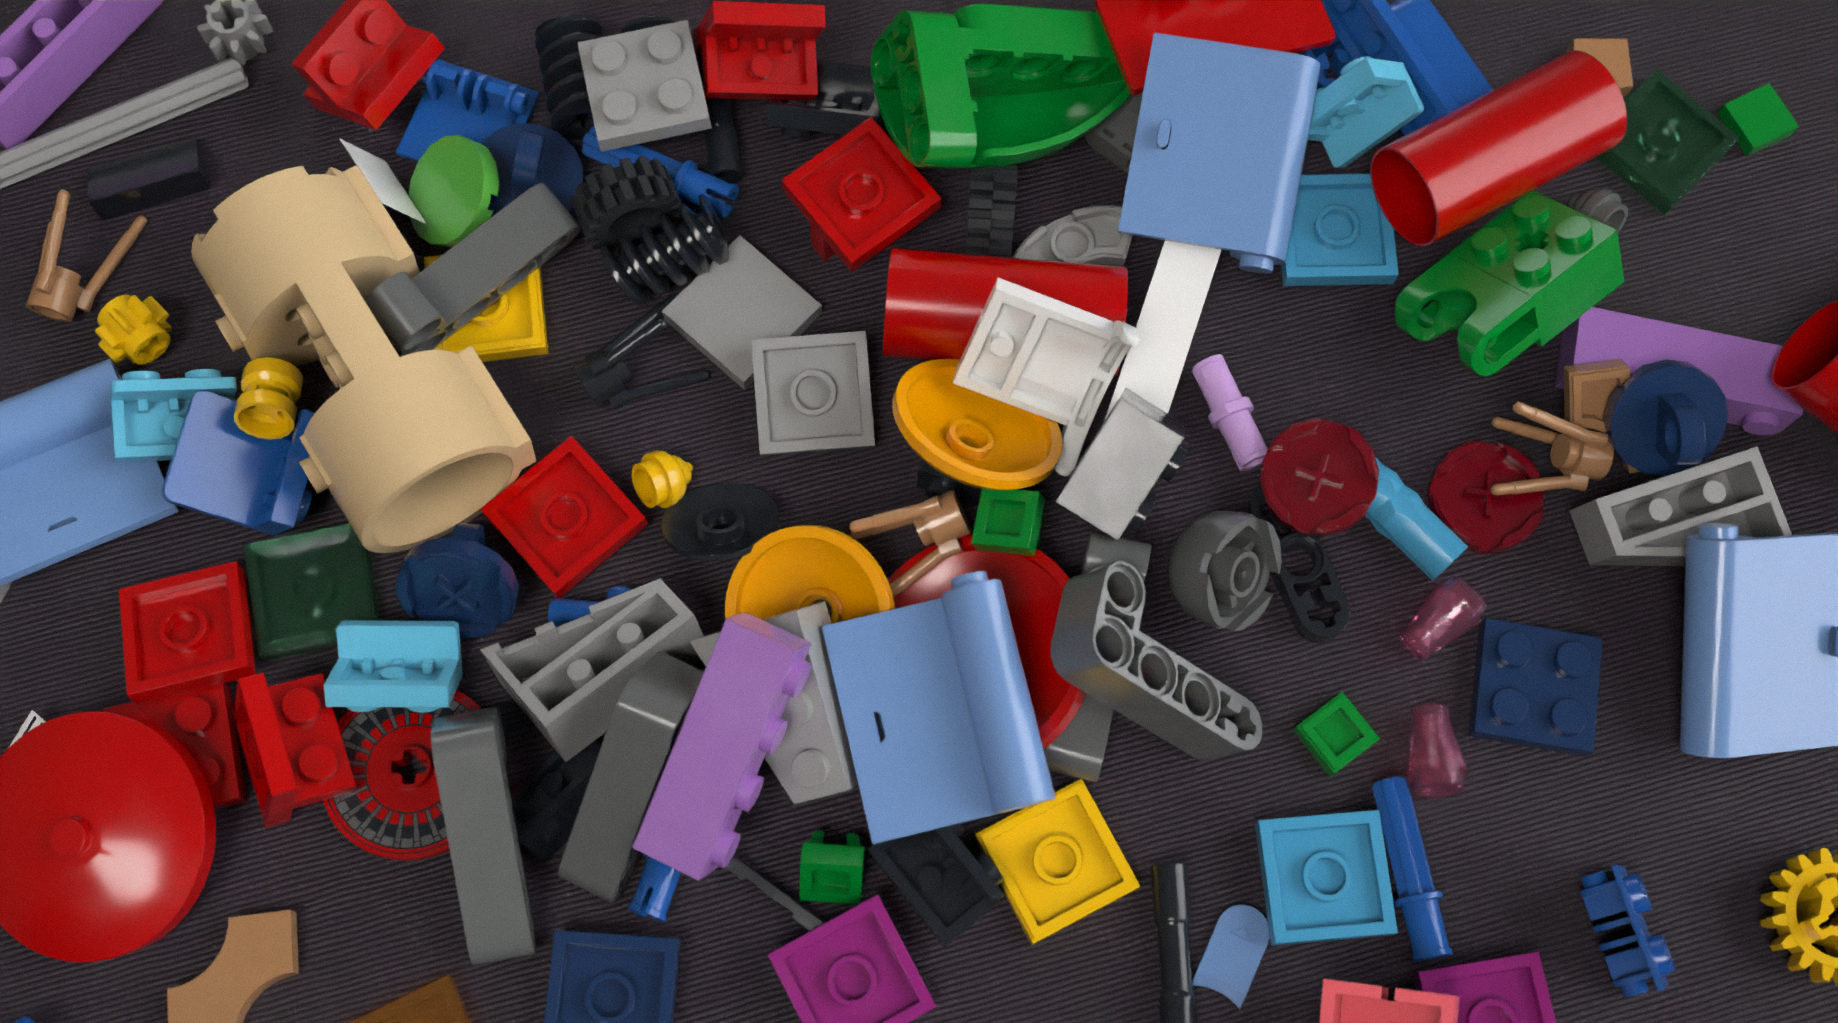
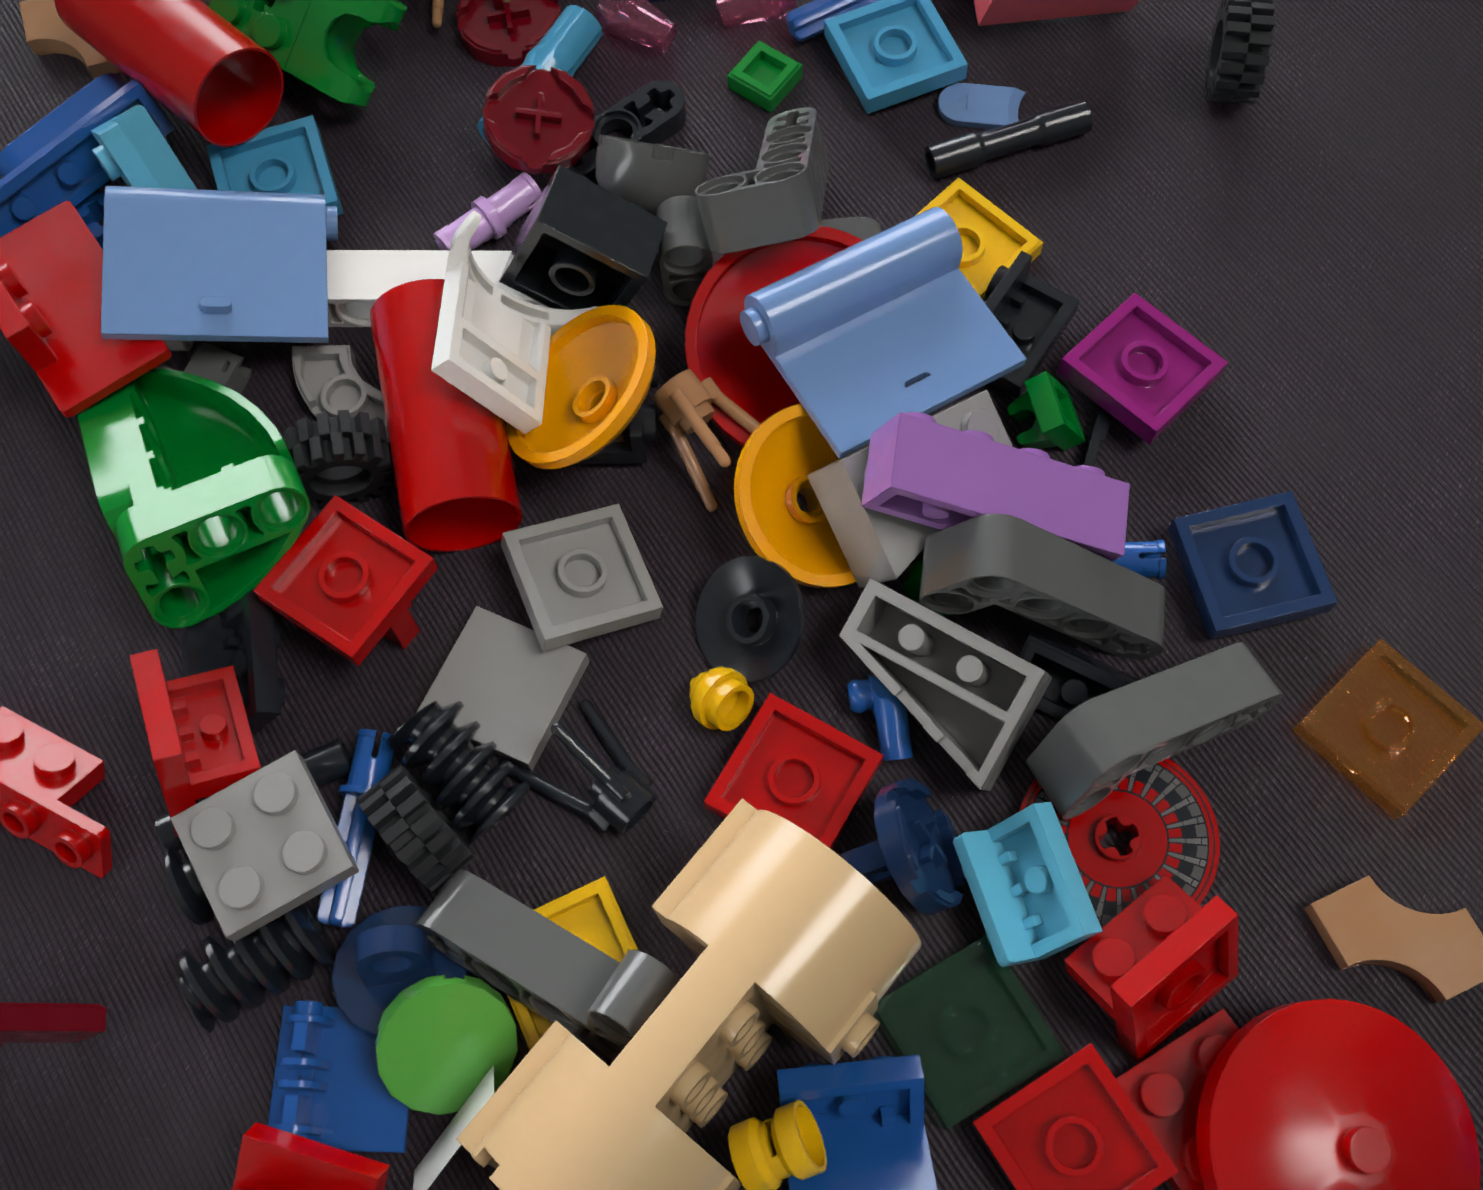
camera: 100 degrees left, 5 degrees down
(1008, 521) = (676, 330): green tile -> none

